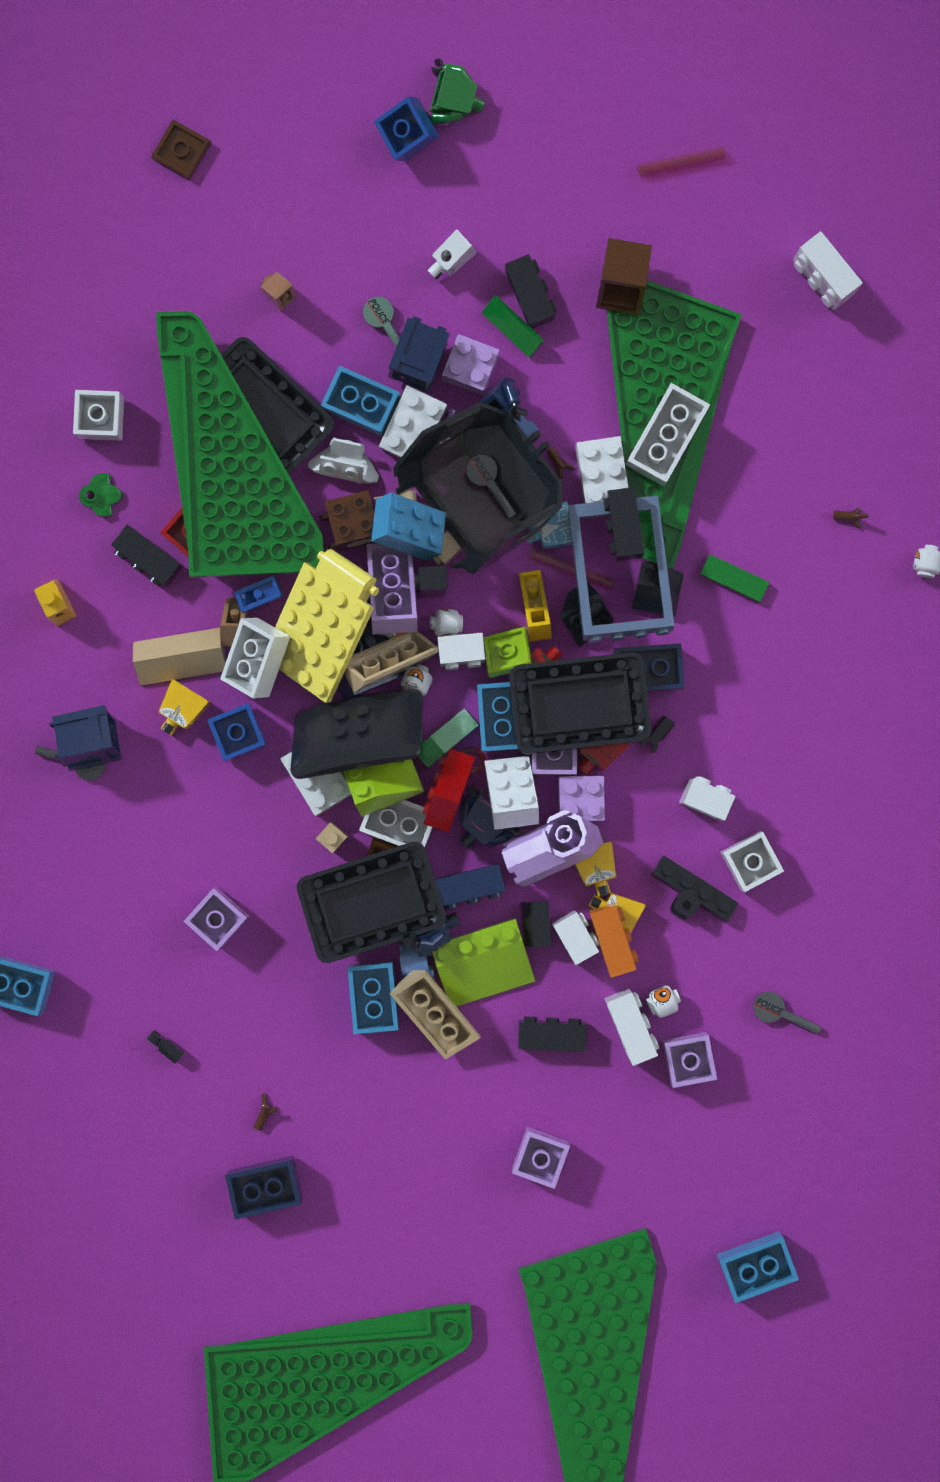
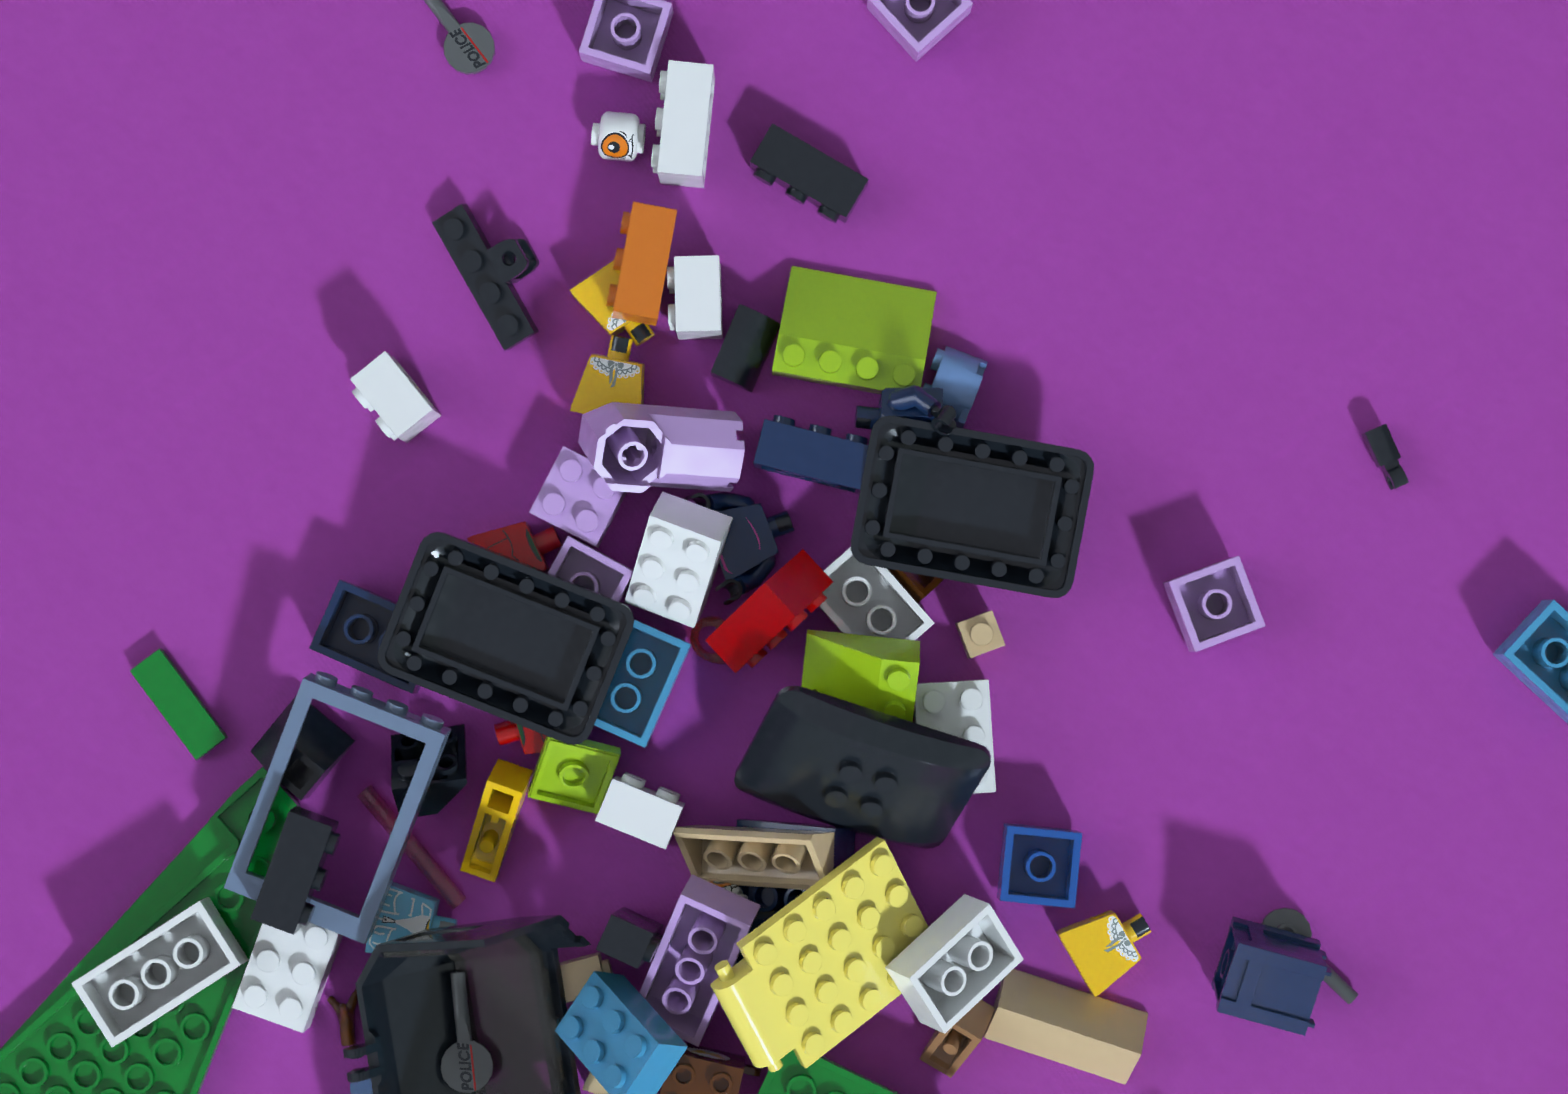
camera: 155 degrees left, 0 degrees up
(259, 594) = (899, 1056): blue slope -> none
(264, 1113) = (1292, 282): reddish brown bar -> none
(264, 1187) = (1348, 174): dark blue brick -> none
(370, 997) = (1042, 366): dark azure brick -> none
(417, 678) = (729, 804): white head -> none
(434, 1013) = (964, 295): tan slope -> none
(446, 622) = (641, 864): white head -> none
(446, 737) = (731, 692): slope -> none
(659, 732) = (412, 533): black bar -> none
(752, 861) = (378, 271): white brick -> none

